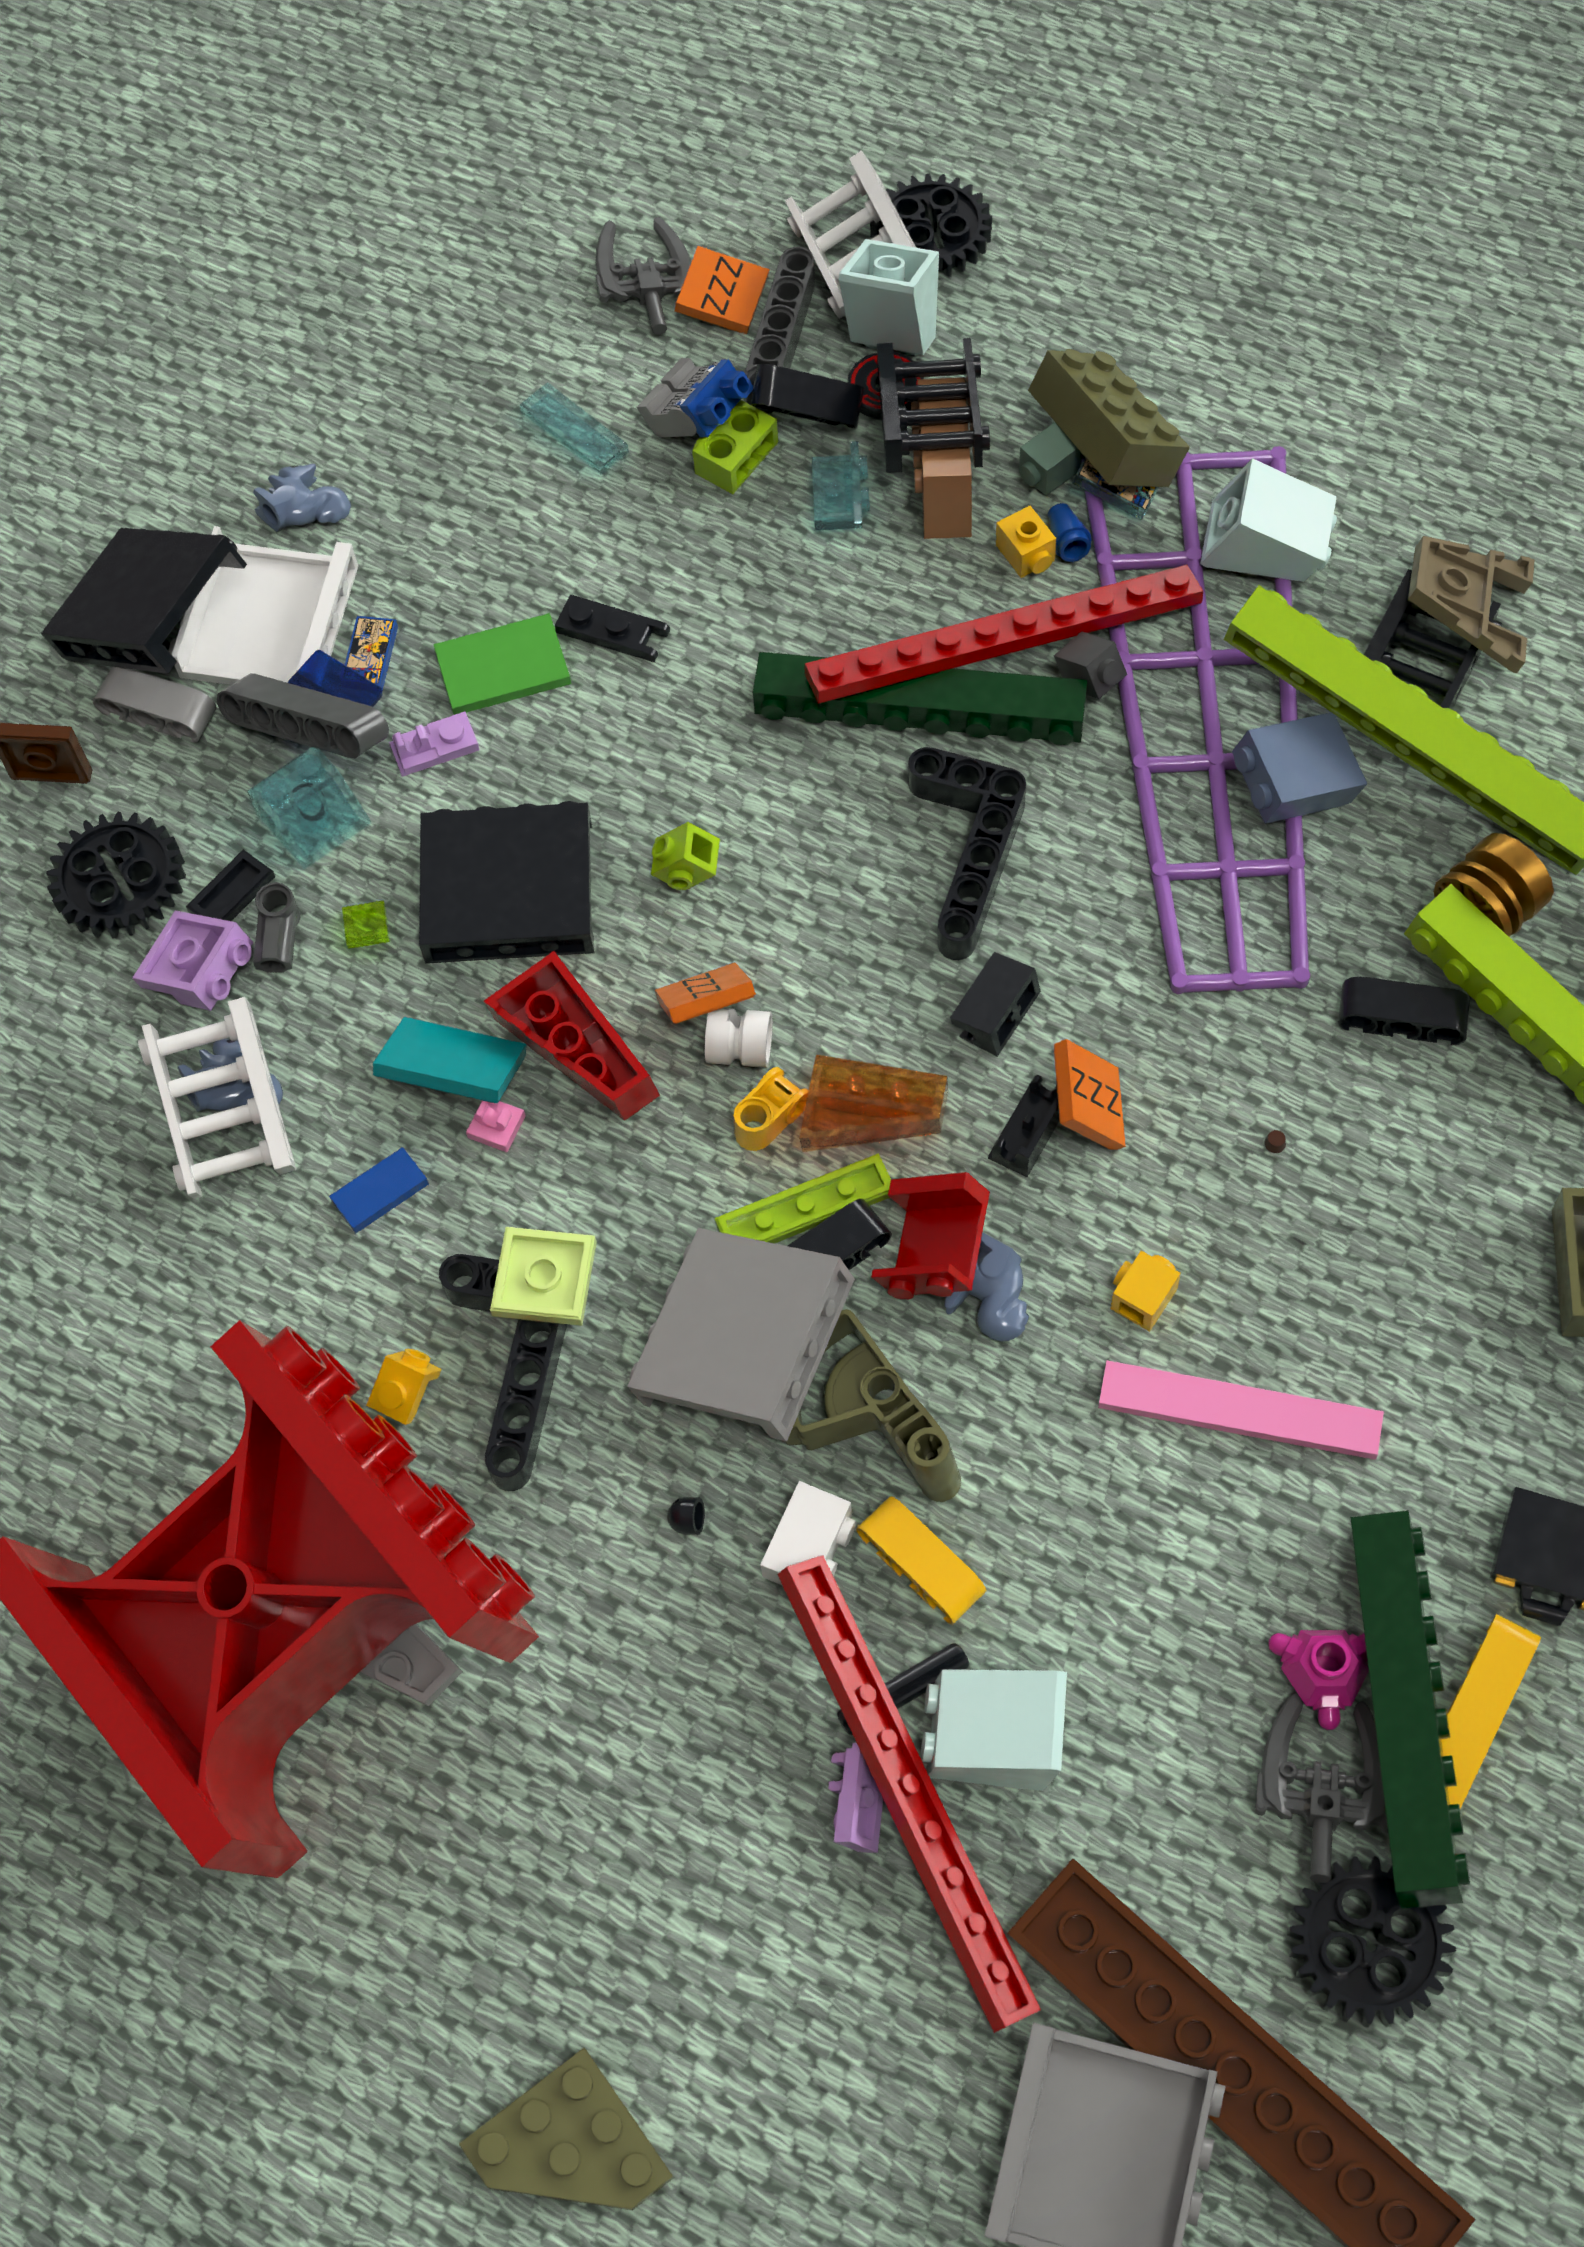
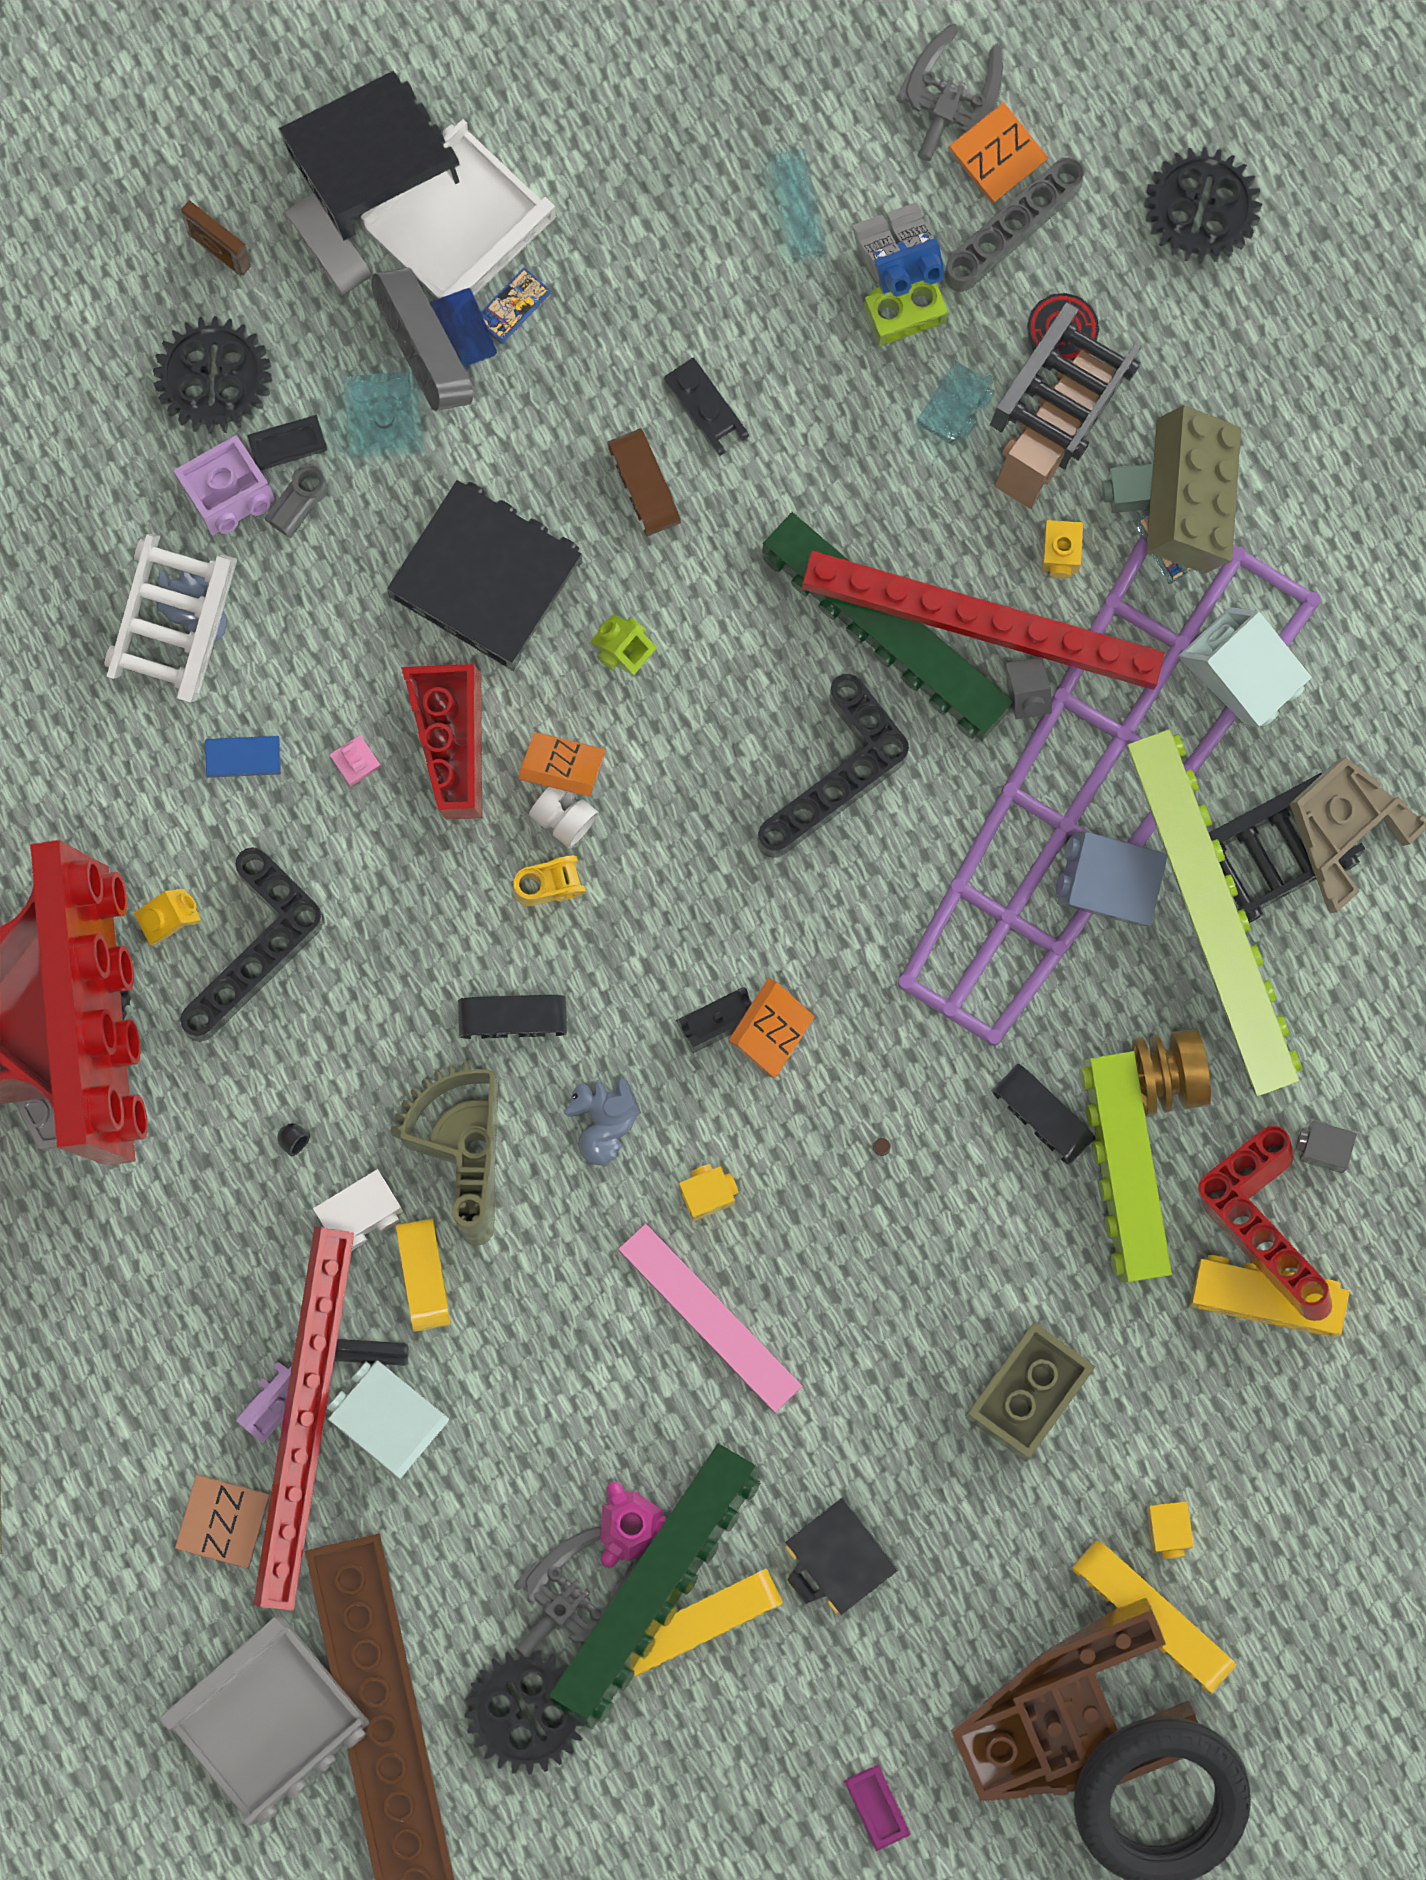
camera: 25 degrees right, 15 degrees up
(294, 504) = (541, 134): sand blue animal -> none
(365, 924) = (365, 537): clear neon green tile -> none
(433, 744) = (510, 417): lavender plate -> none
(449, 1060) = (352, 692): teal tile -> none
(502, 664) = (604, 382): bright green tile -> none
(543, 1276) = (305, 907): yellowish green tile -> none
(602, 716) = (645, 482): none -> reddish brown beam
(742, 1330) = (411, 1038): light grey panel -> none
(807, 395) = (985, 308): black beam -> none
(808, 1203) = (524, 970): lime tile -> none
(869, 1104) = (616, 927): clear orange wedge -> none
(877, 208) = (1157, 203): white fence -> none
(891, 296) = (1110, 263): light aqua slope -> none
(894, 1967) = (222, 1521): none -> nougat tile
(938, 1235) = (591, 1061): red panel -> none
(996, 1003) = (763, 910): black hinge -> none
(1069, 533) = (1100, 561): blue cone -> none

